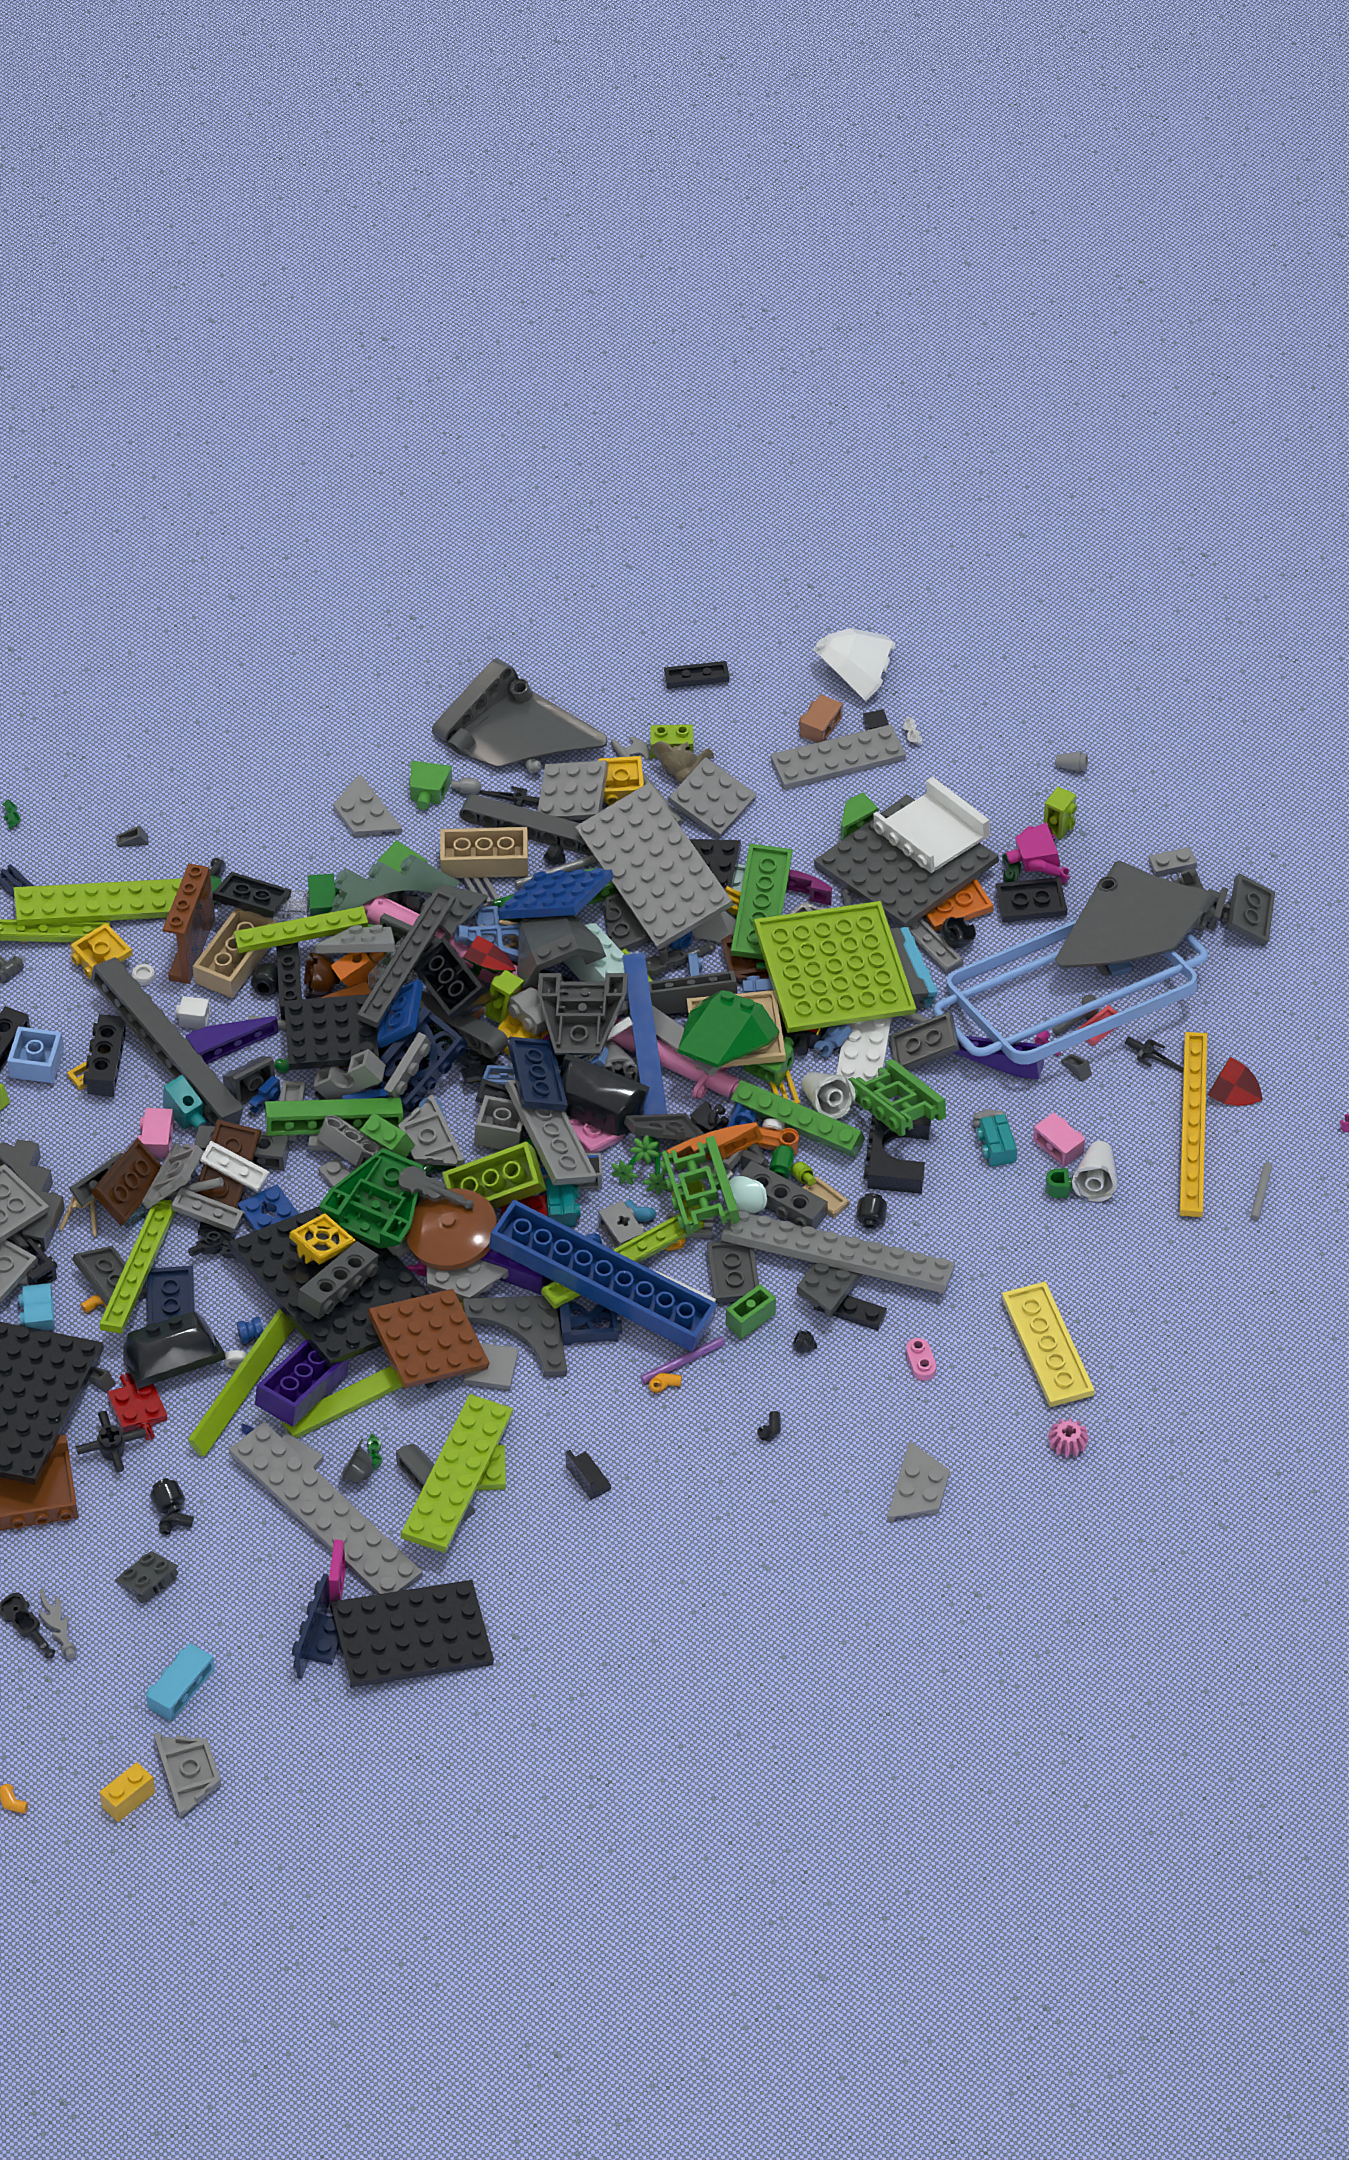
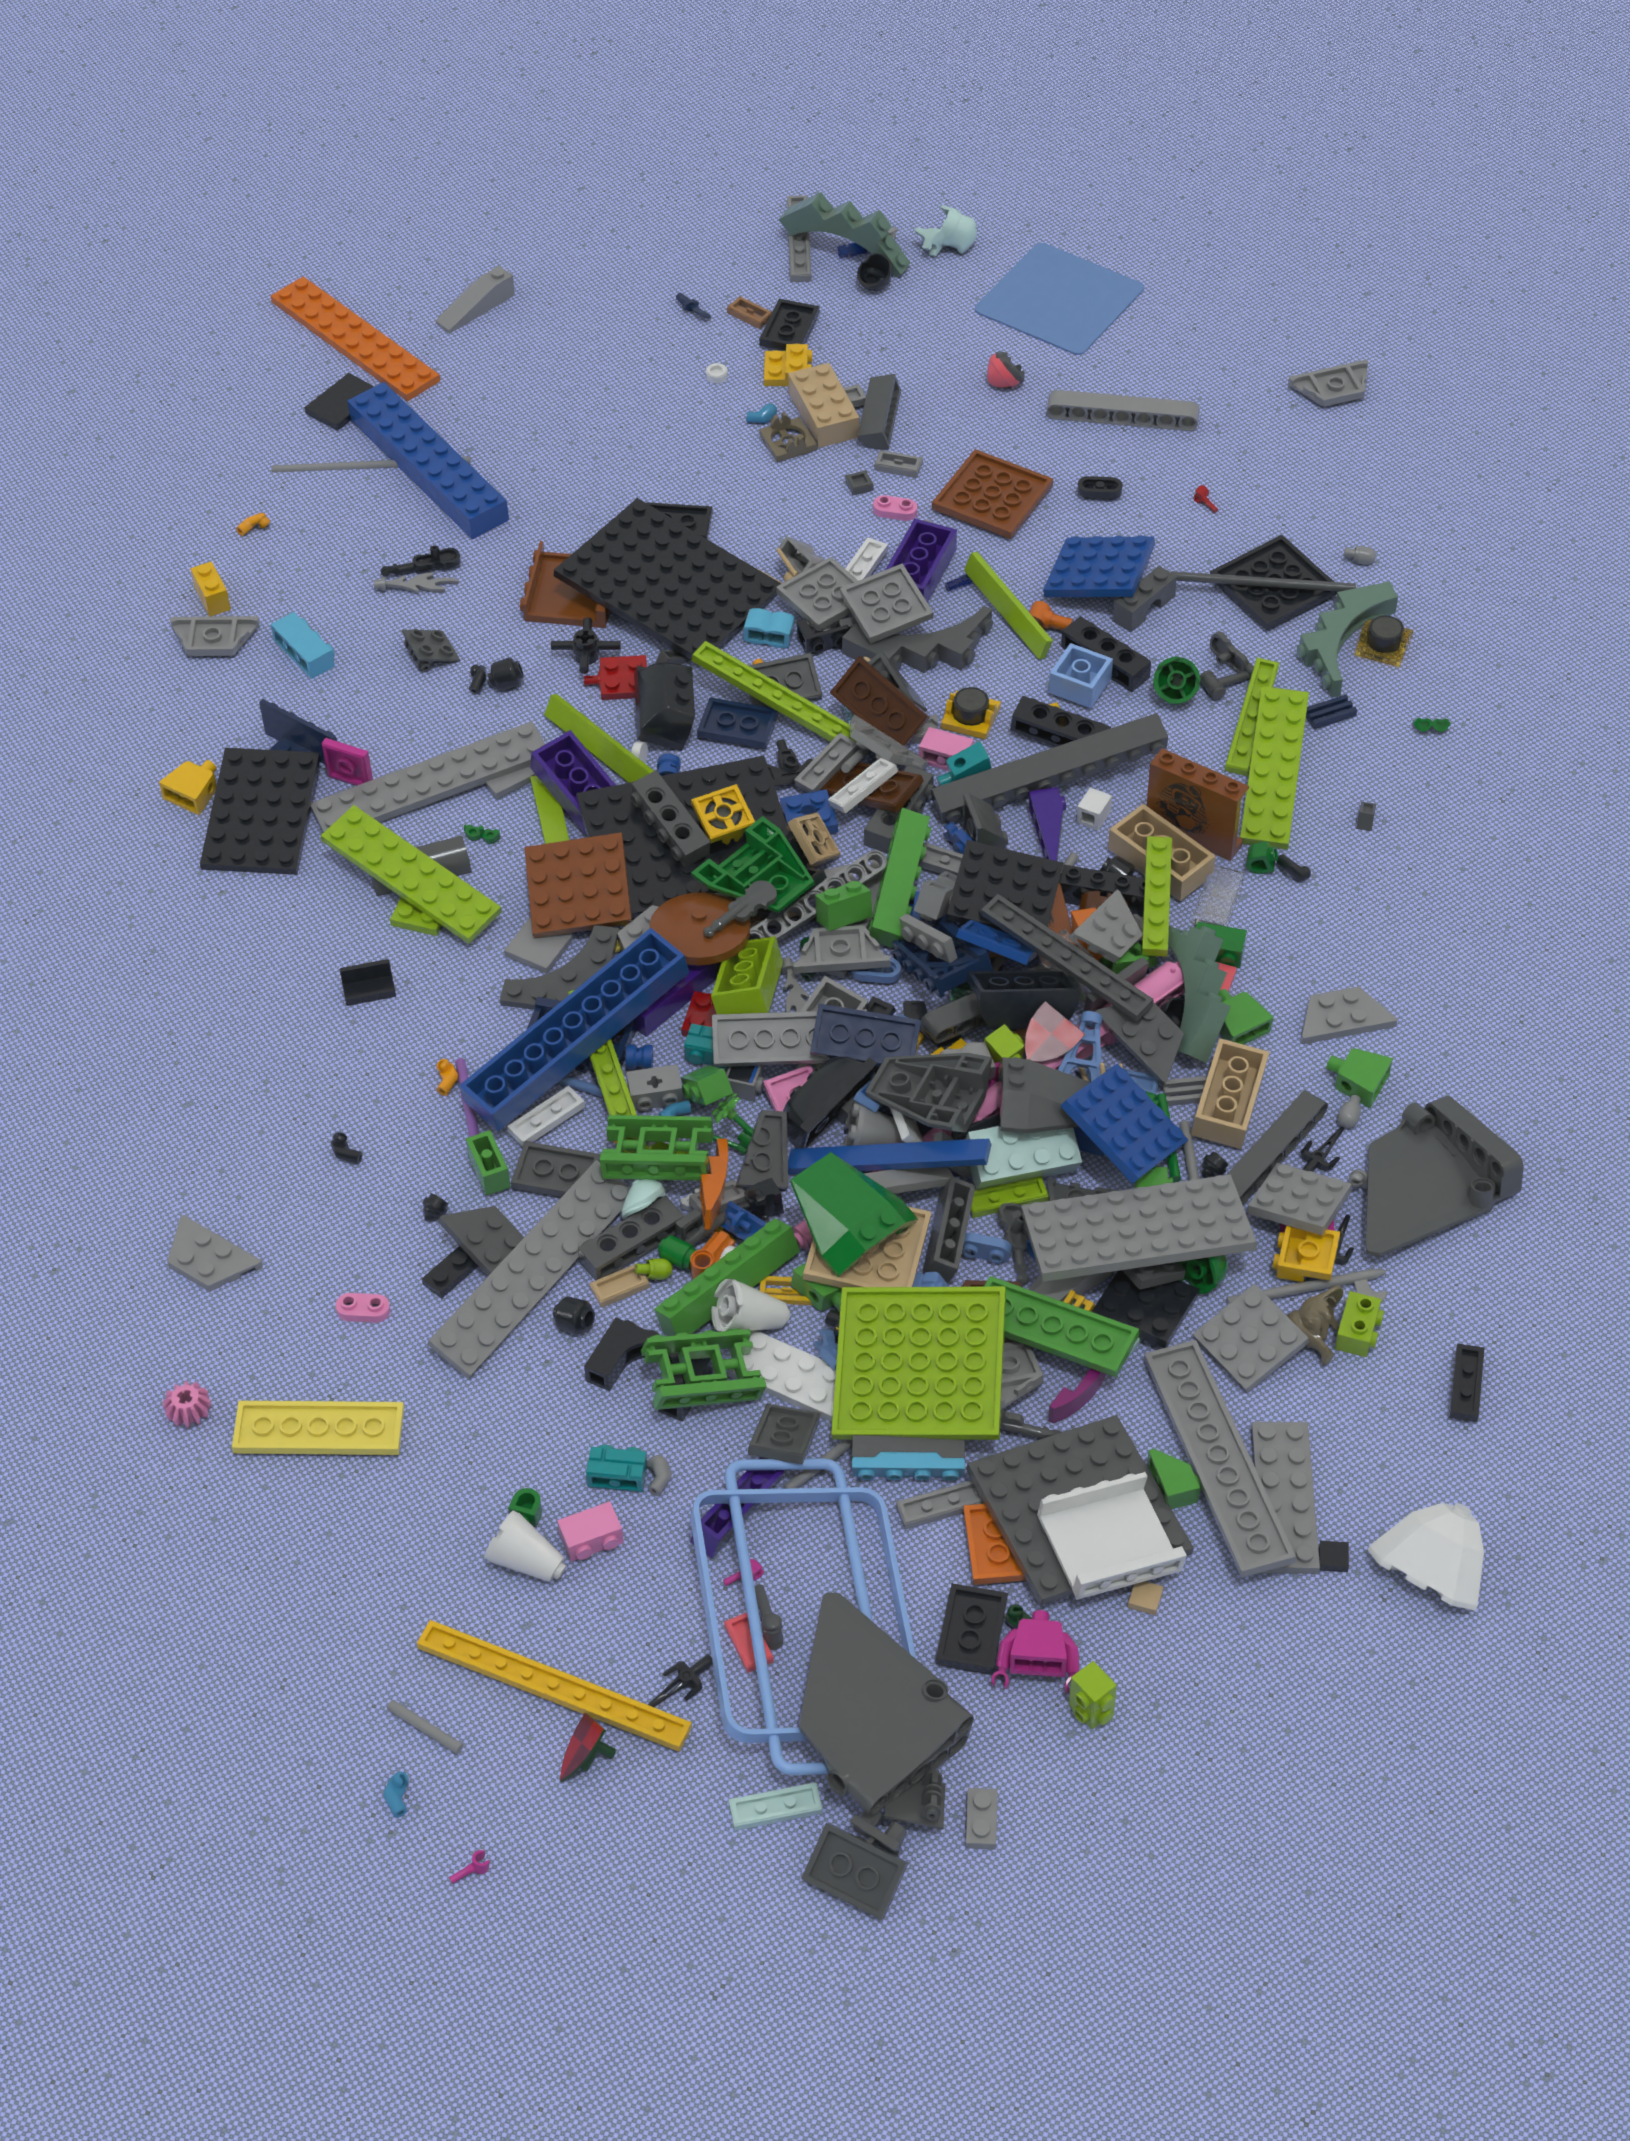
camera: 110 degrees right, 0 degrees up
(23, 984) = (1176, 680): none -> green cylinder
(98, 947) = (1204, 746): yellow plate -> none
(101, 1129) = (971, 711): none -> piece
(251, 895) = (1222, 866): black plate -> none
(310, 1192) = (811, 840): none -> tan piece
(358, 1467) = (462, 805): dark grey piece -> none
(399, 1703) = (190, 786): none -> yellow torso
(613, 1182) = (706, 1085): none -> bright green brick
(820, 719) = (1349, 1490): nougat brick -> none
(829, 789) = (1219, 1459): none -> light grey plate
(913, 735) = (1303, 1589): white piece -> none
(957, 932) = (943, 1525): black hair -> none
(1073, 761) = (1190, 1756): light grey cone -> none
(1078, 1066) = (691, 1595): dark grey piece -> none
(1222, 976) = (775, 1806): none -> light aqua tile
(1324, 1190) = (394, 1792): none -> dark azure arm

